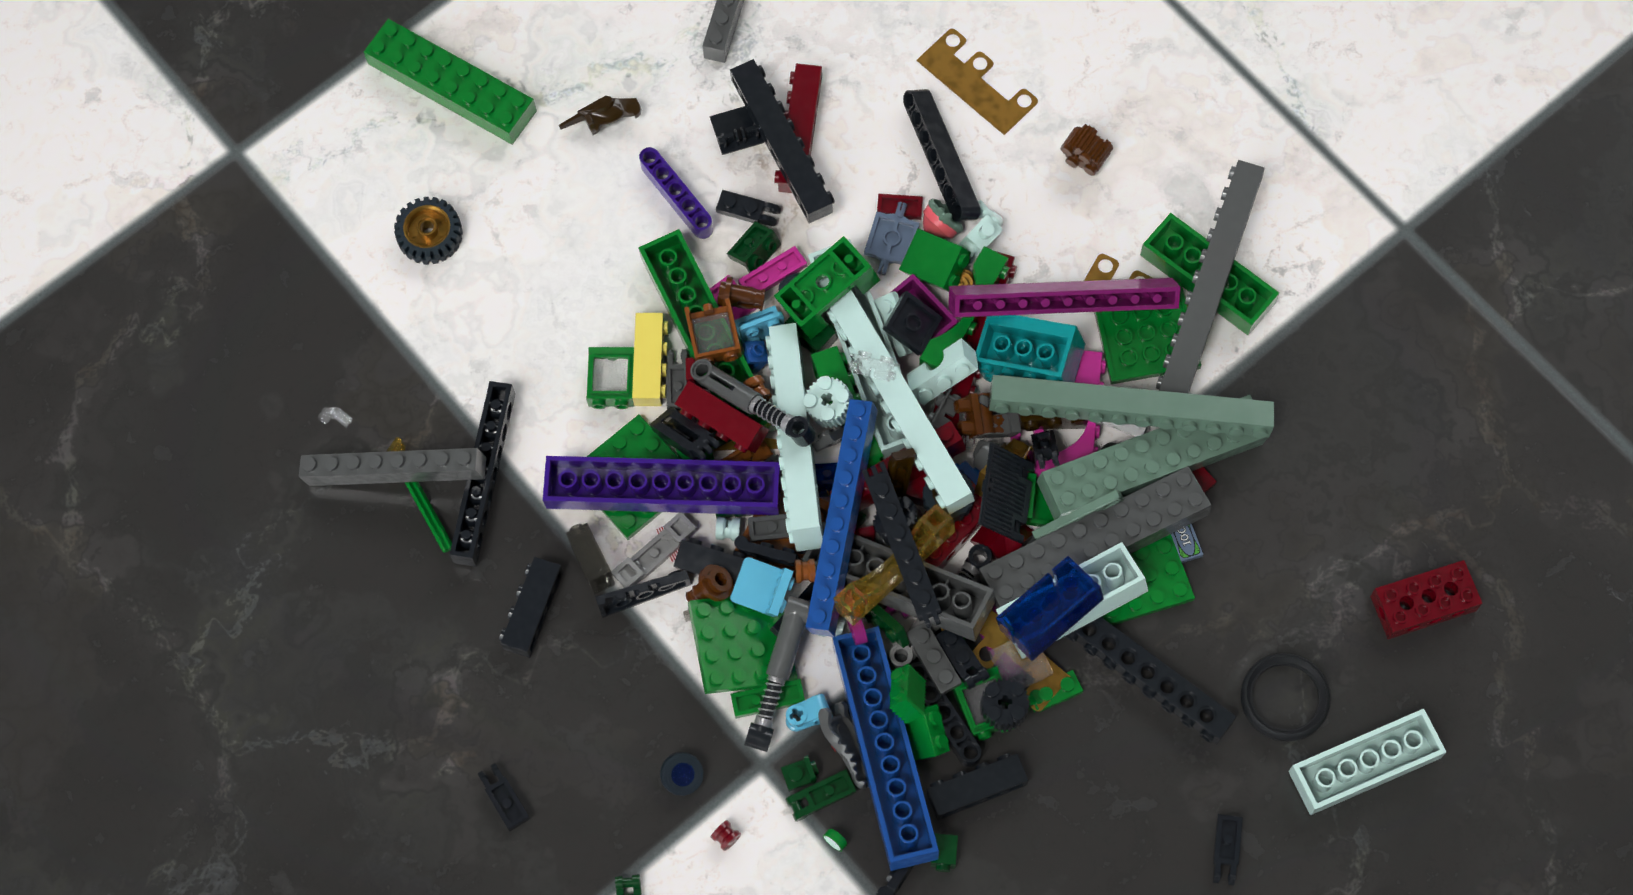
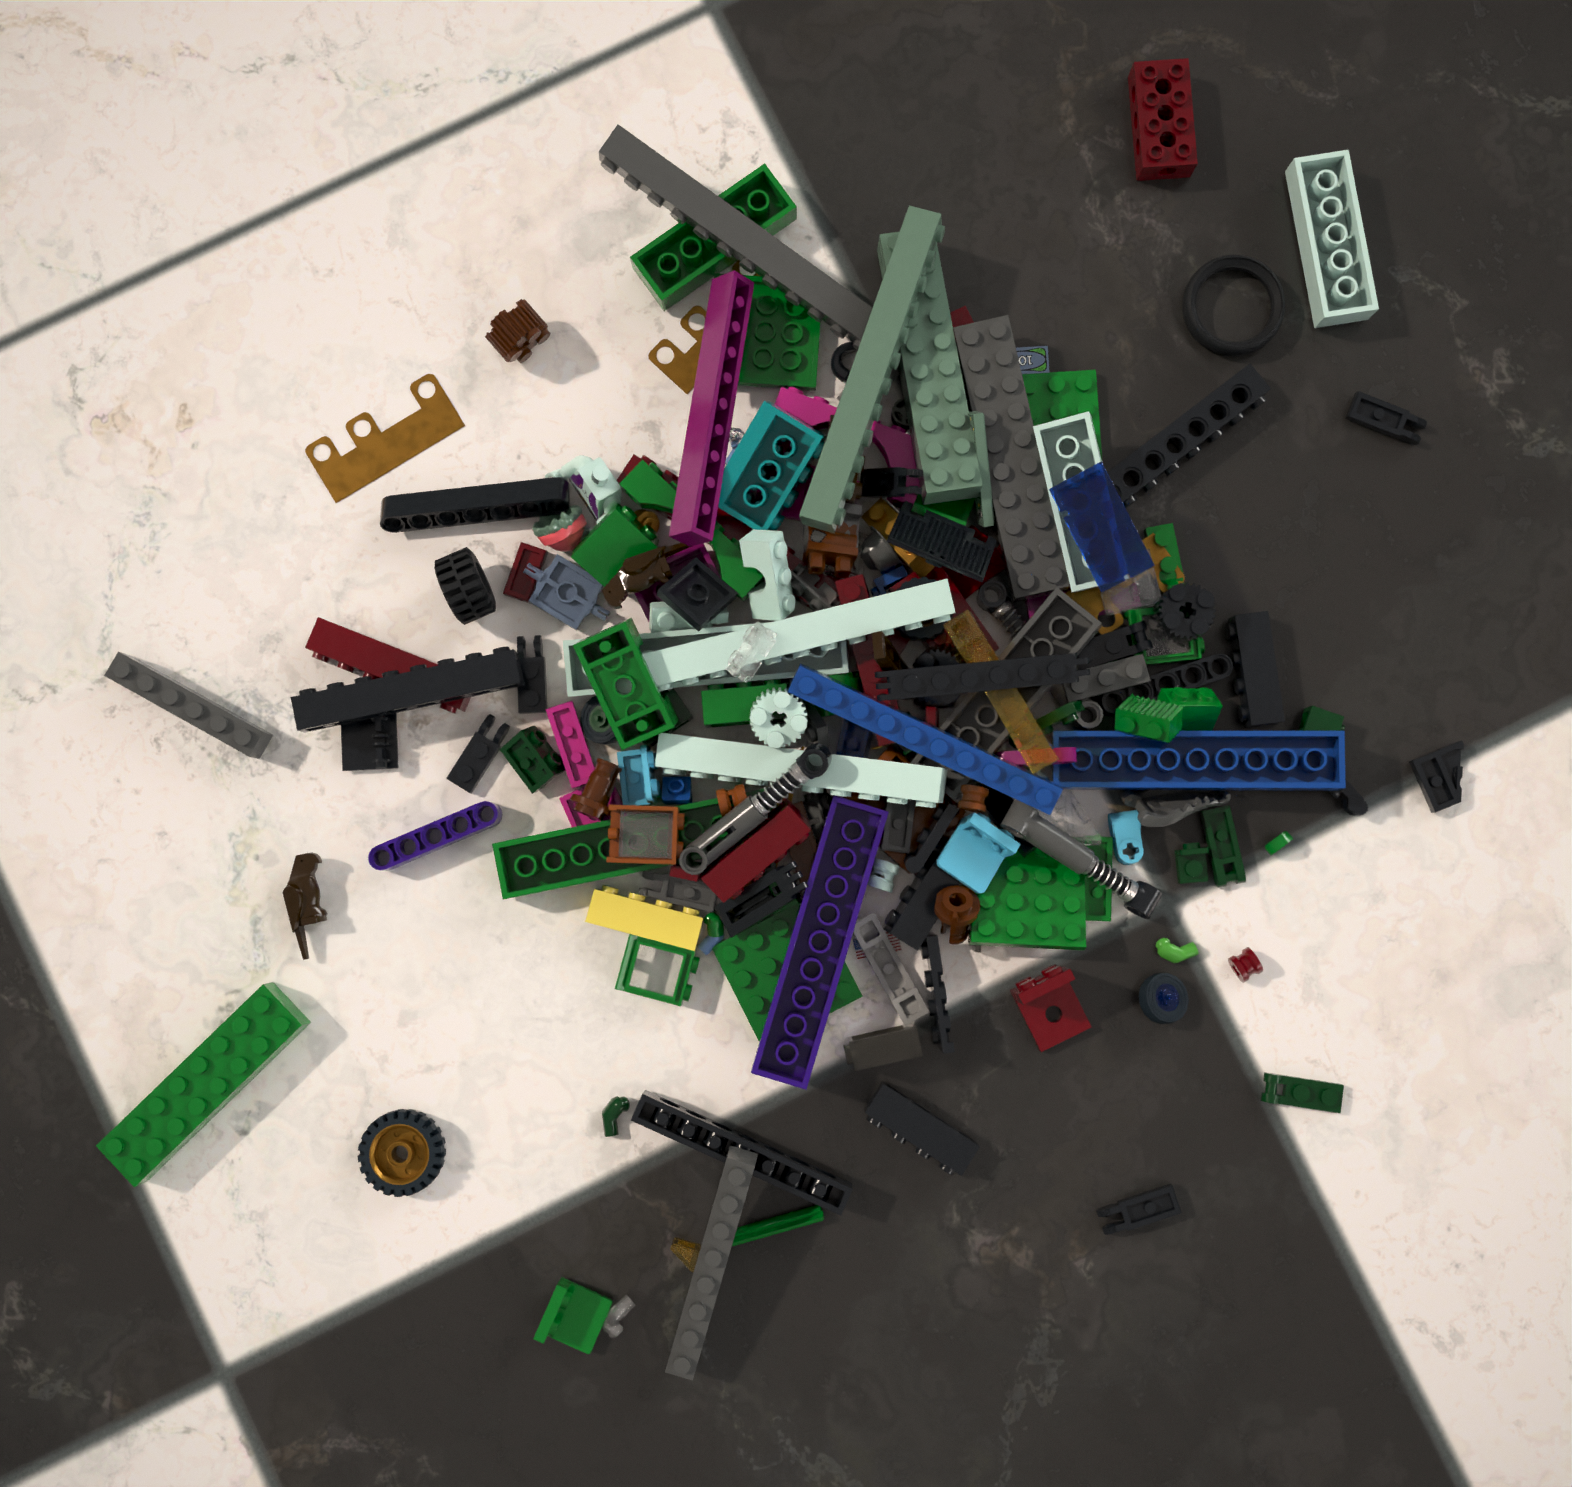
camera: 75 degrees left, 15 degrees up
(329, 381) = (574, 1316): none -> green bracket
(490, 372) = (612, 1112): none -> dark green arm
(650, 414) = (715, 933): none -> arm
(662, 674) = (1050, 989): none -> dark red bracket
(721, 773) = (1174, 953): none -> bright green arm
(811, 660) = (1073, 820): none -> clear wing
(819, 231) = (532, 696): none -> black hinge
(874, 160) = (465, 586): none -> black tyre
(917, 279) = (640, 574): none -> dark brown animal

